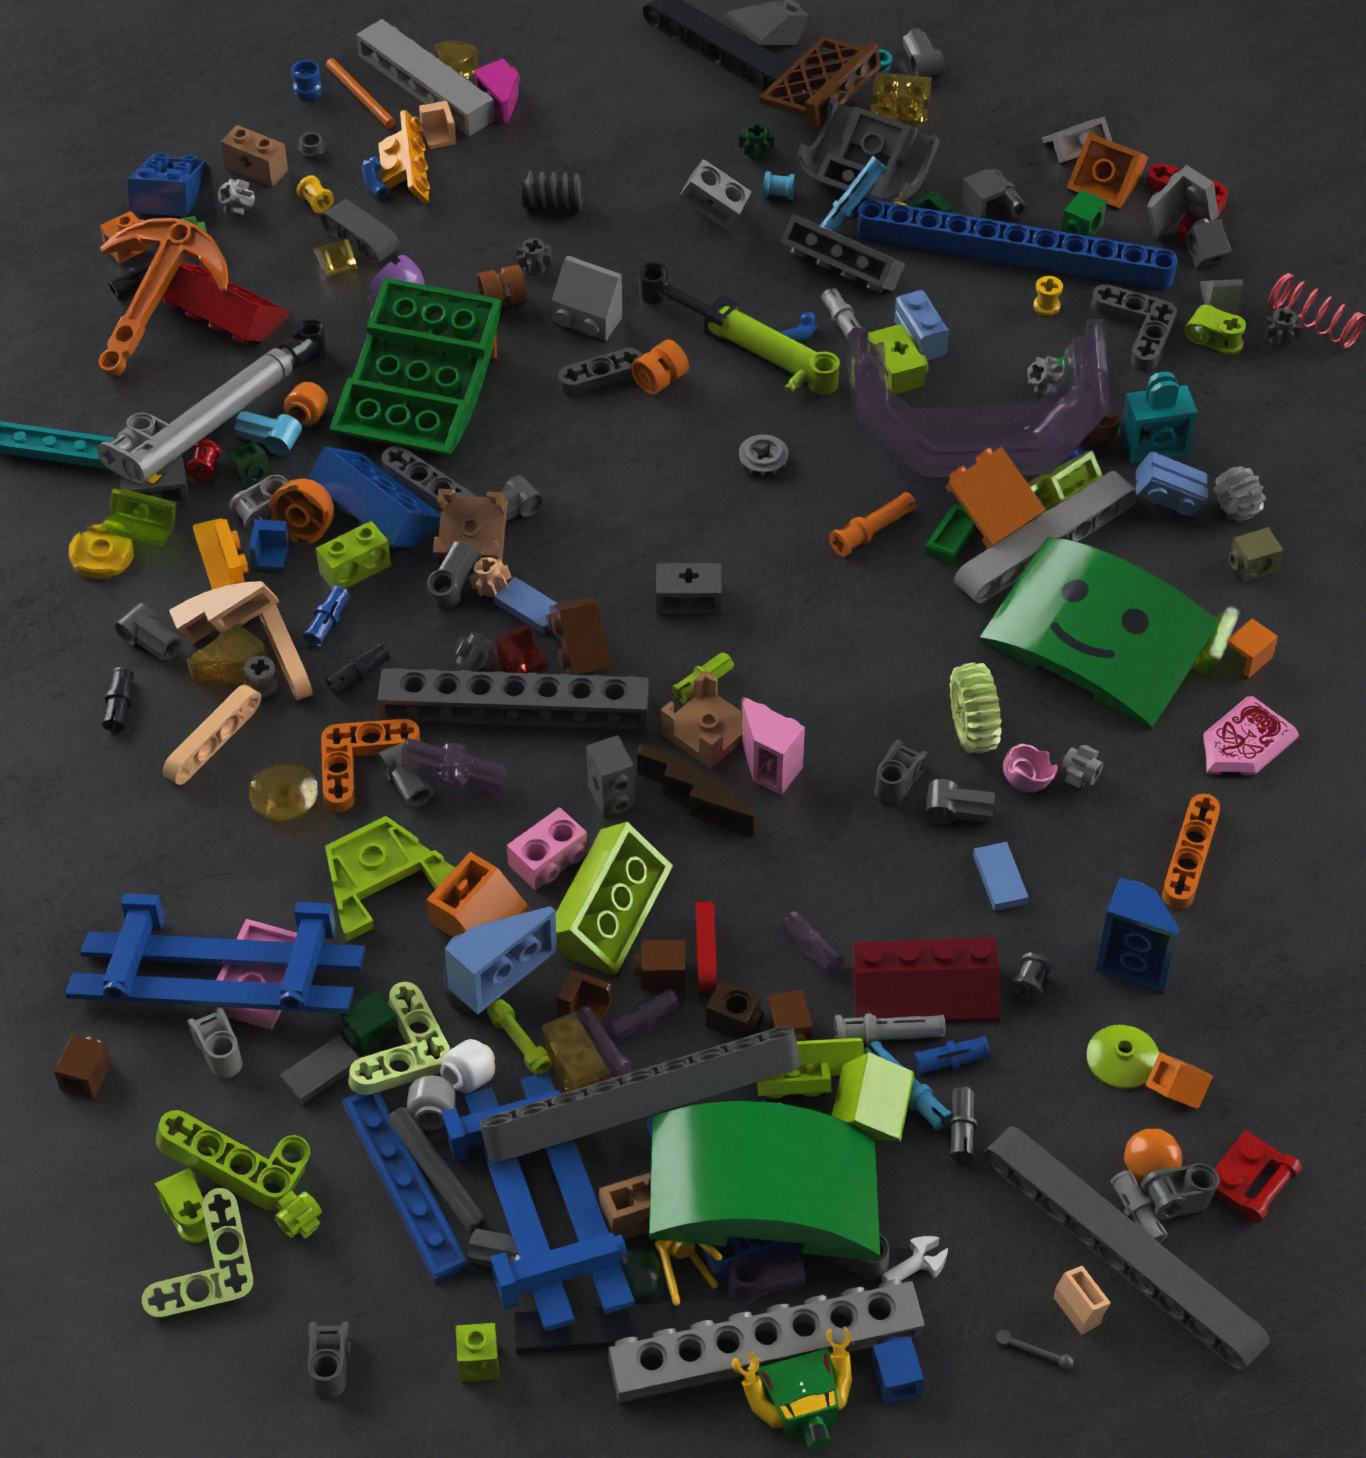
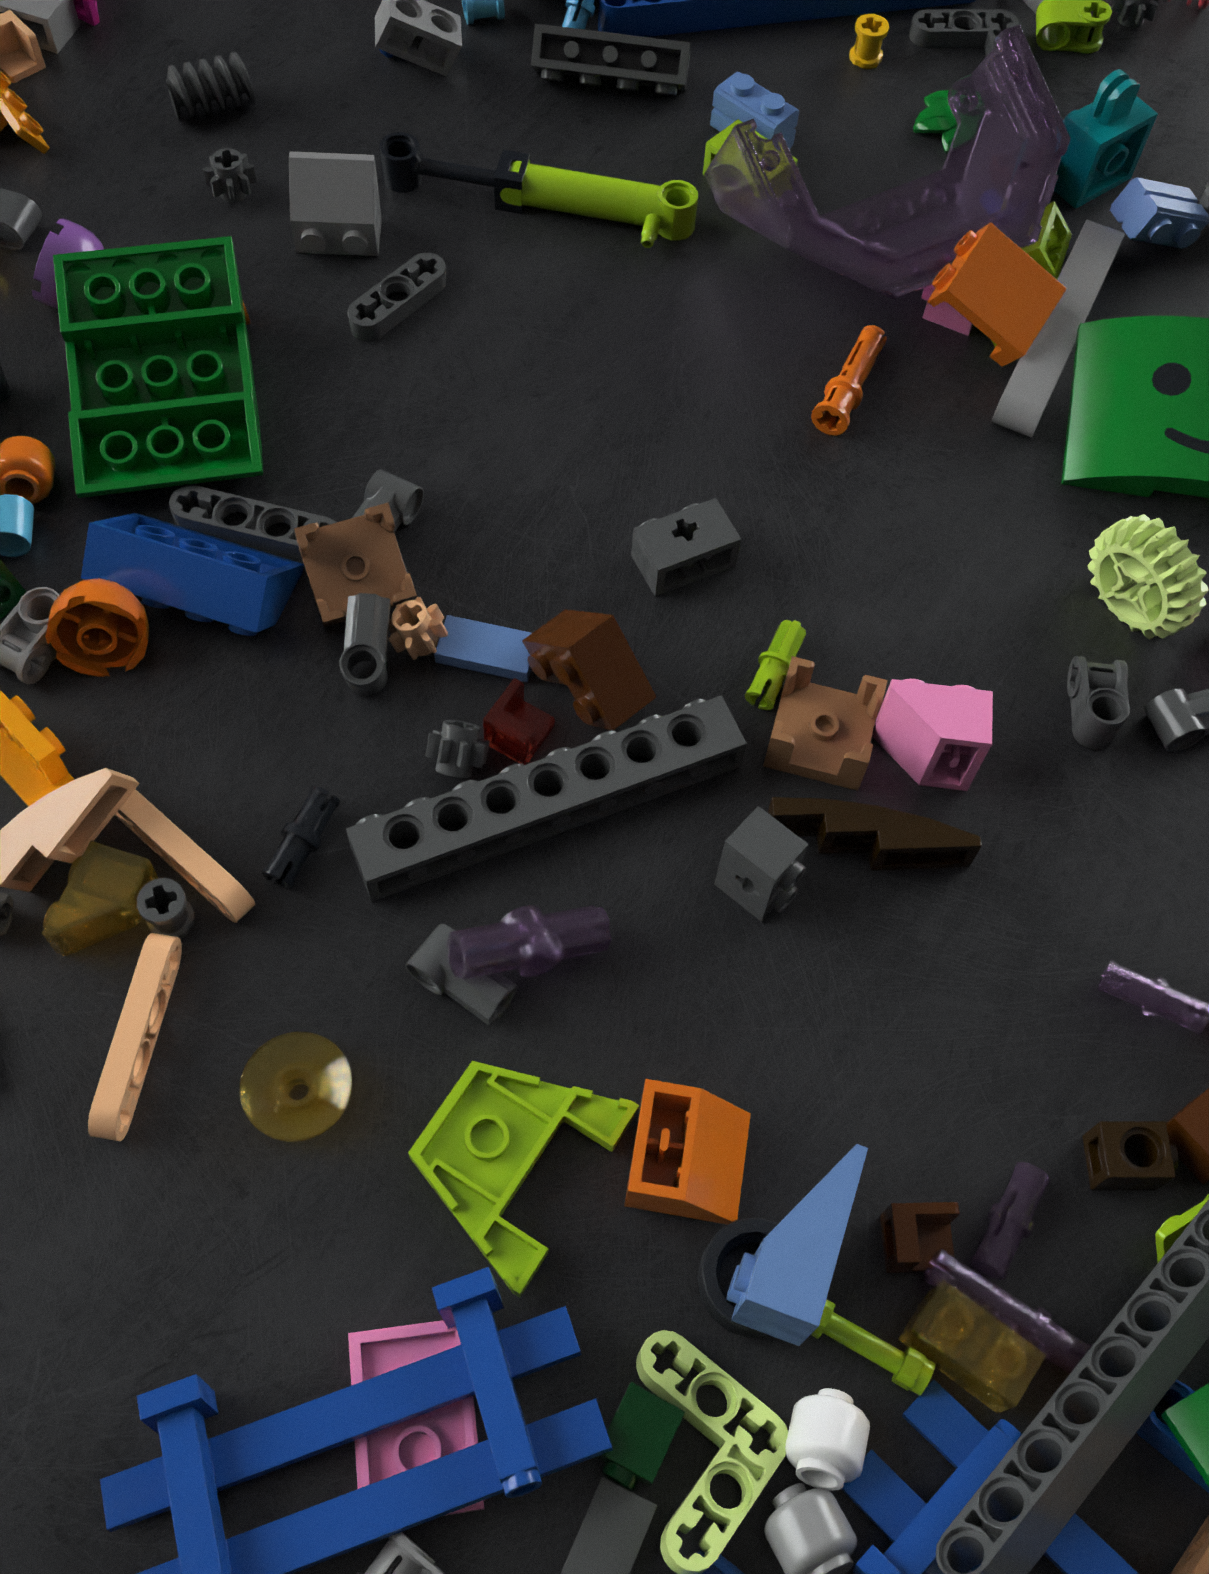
camera: 30 degrees left, 10 degrees up
(269, 545) = (73, 696): blue panel -> none
(322, 622) = (212, 773): blue pin -> none
(346, 751) = (351, 976): orange beam -> none
(353, 556) = (207, 669): lime brick -> none
(491, 282) = (216, 217): dark orange wheel -> none
(544, 844) = (722, 1008): bright pink brick -> none
(610, 898) = (855, 1054): lime slope -> none
(660, 367) = (475, 265): orange wheel -> none
(661, 964) = (991, 1126): reddish brown brick -> none
(706, 948) = (1029, 1071): red beam -> none
(760, 446) = (648, 331): light grey gear -> none
(804, 329) = (616, 161): blue arm -> none
(841, 312) = (650, 134): light grey pin -> none
(951, 535) = (947, 360): green tile -> none
(1044, 374) = (920, 132): light grey gear -> none

